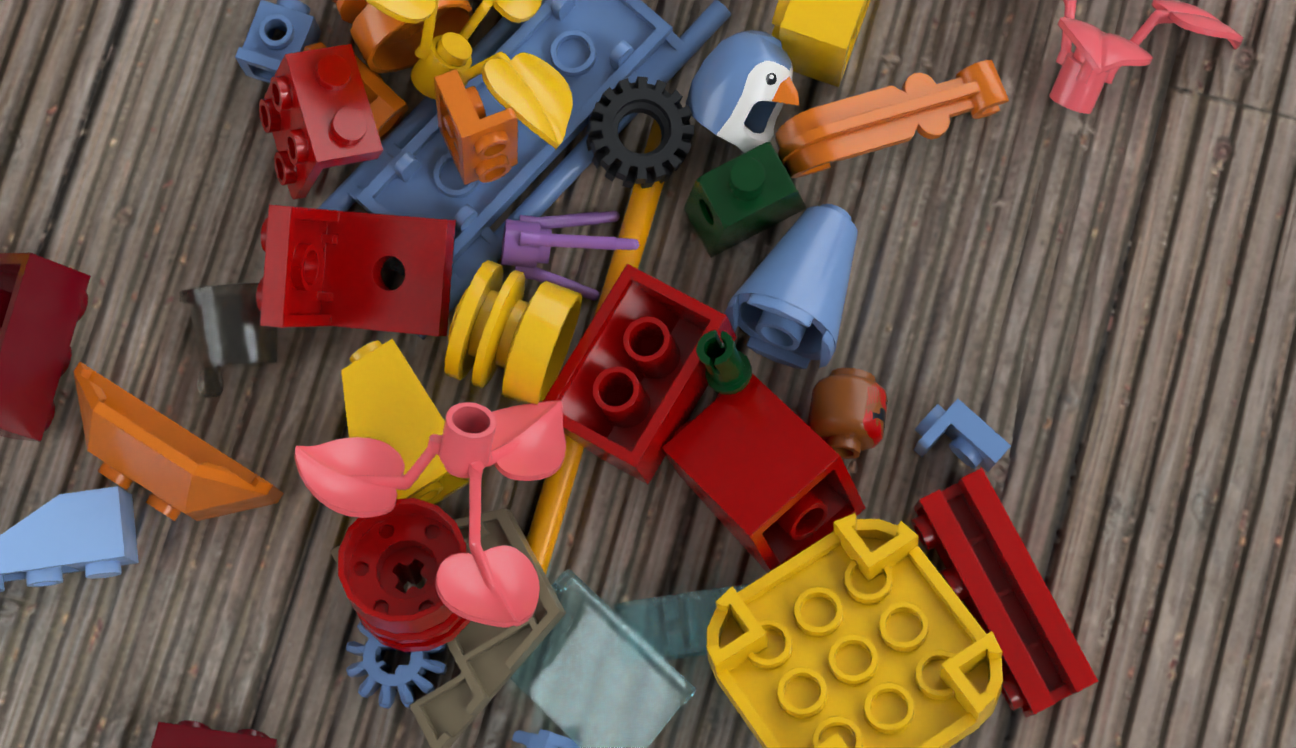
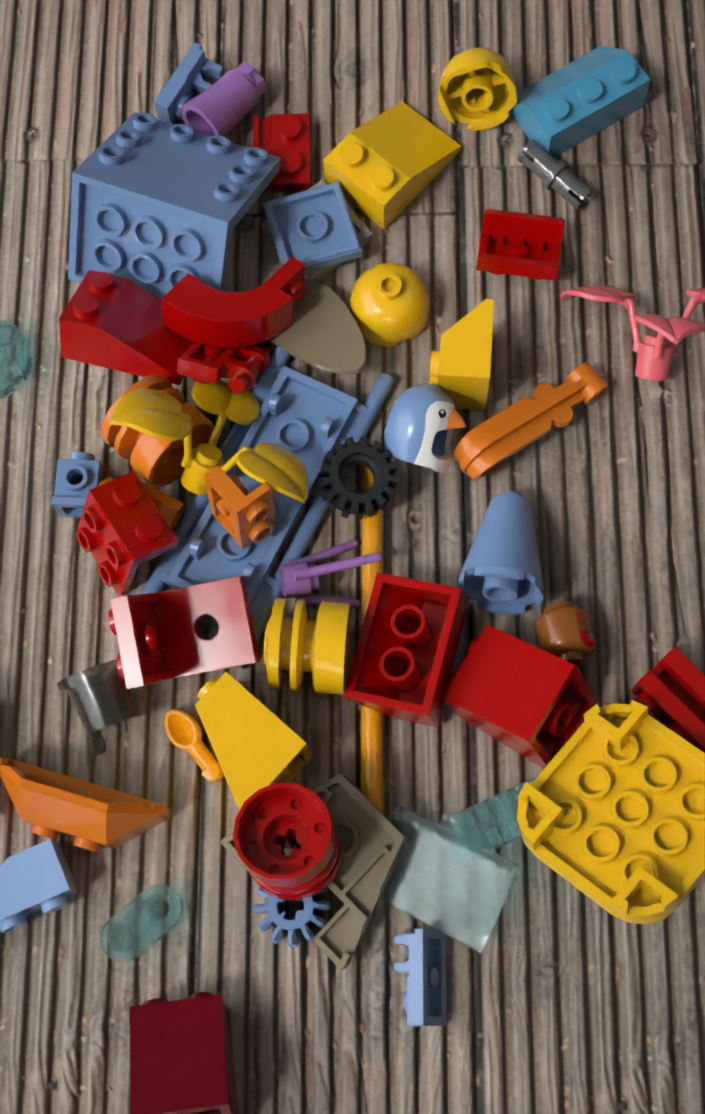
camera: 15 degrees left, 5 degrees down
(206, 623) = (143, 923): none -> clear light blue plate
(325, 401) = (187, 735): none -> light orange piece
(522, 441) = (343, 720): coral plant -> none
(726, 368) = (470, 625): dark green pin -> none
(743, 199) = (446, 502): dark green torso -> none
(972, 438) = (658, 627): medium blue bracket -> none

